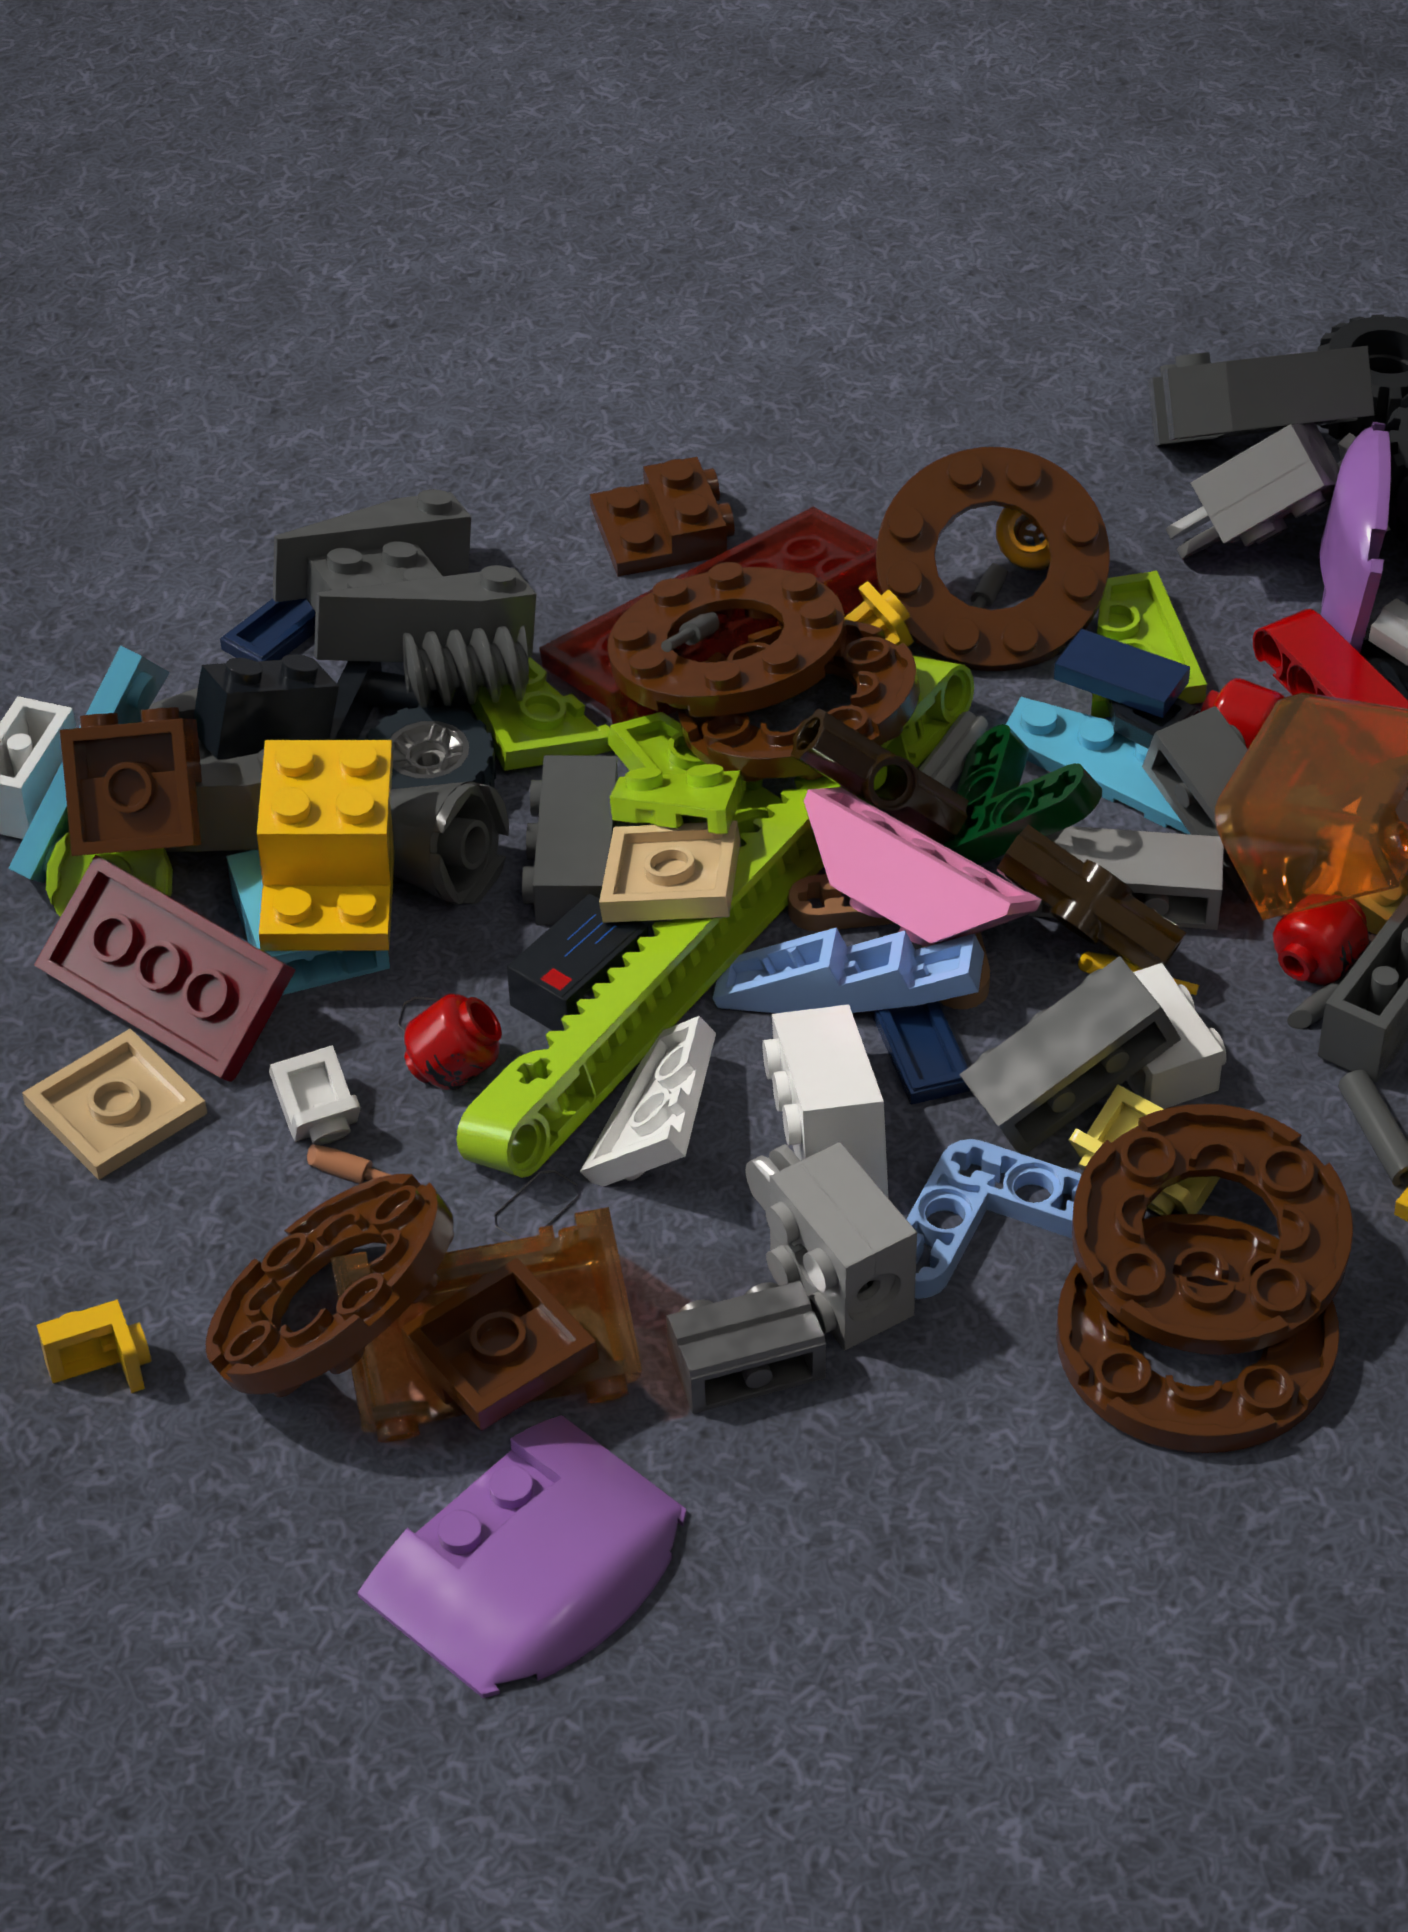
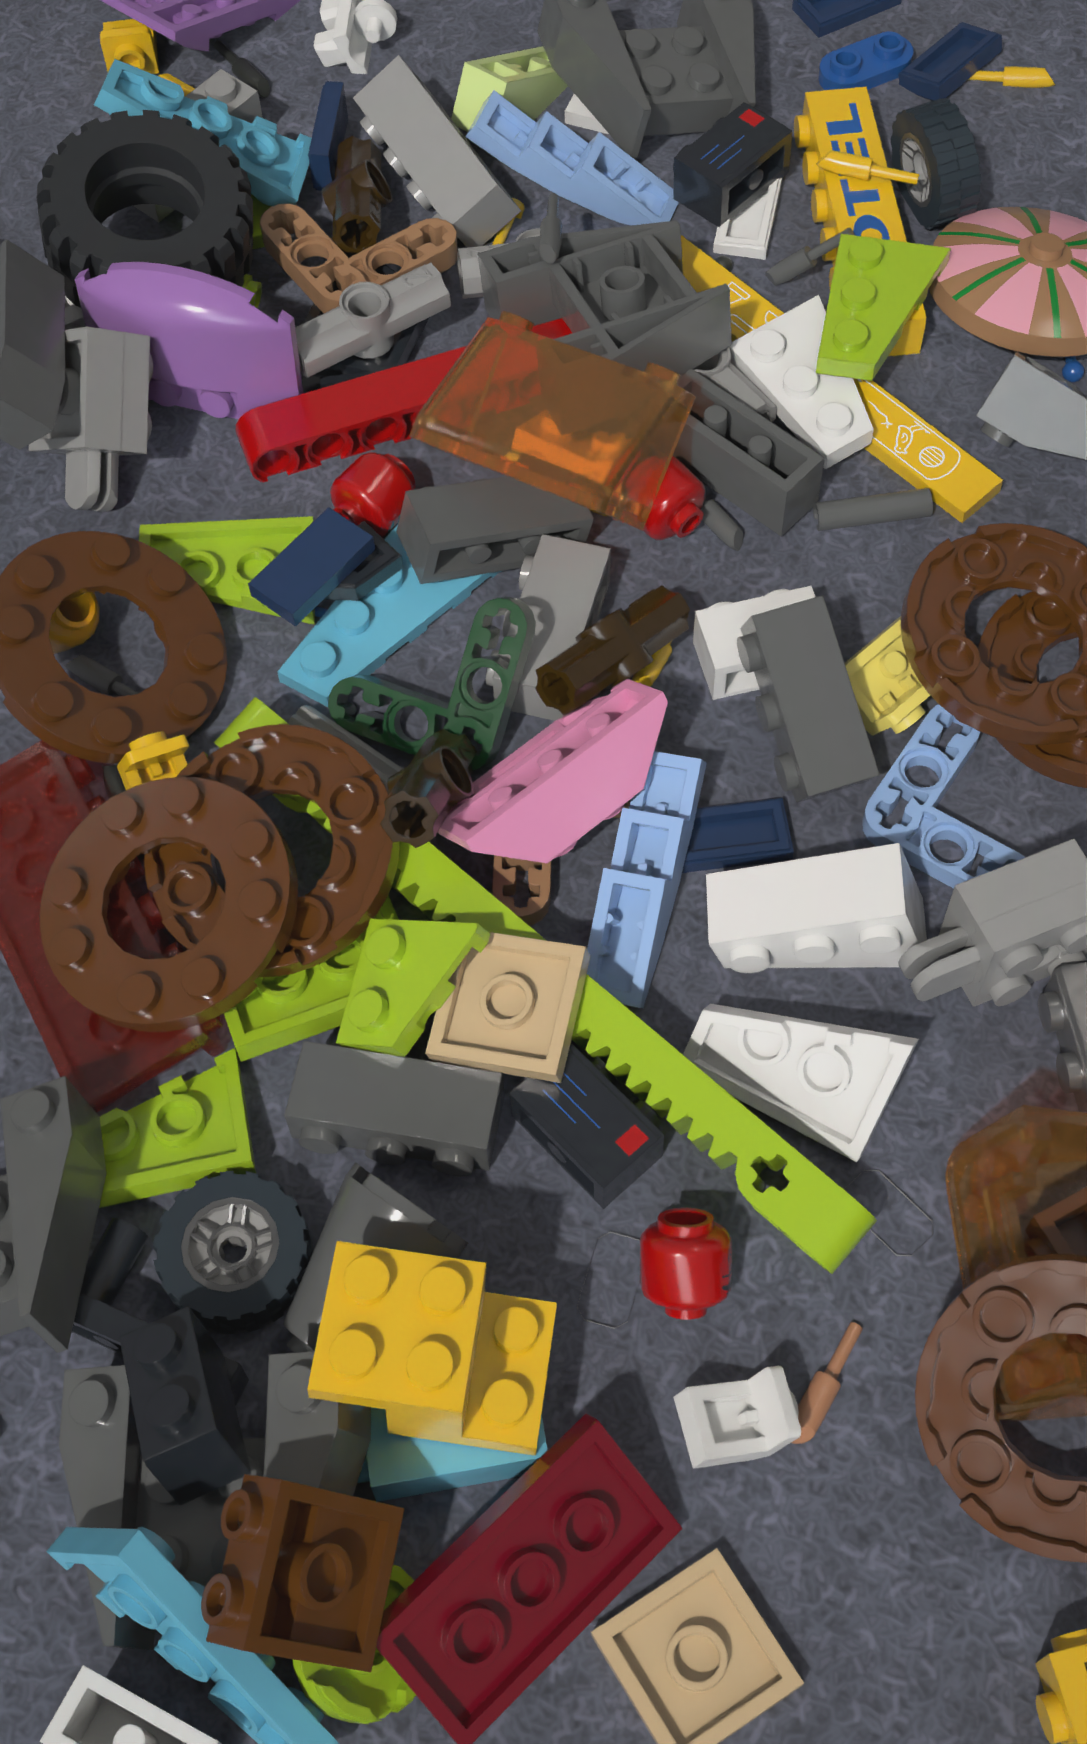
camera: 80 degrees left, 15 degrees up
(466, 666) = (134, 1176): dark grey piece -> none
(693, 631) = (151, 930): dark grey piece -> none

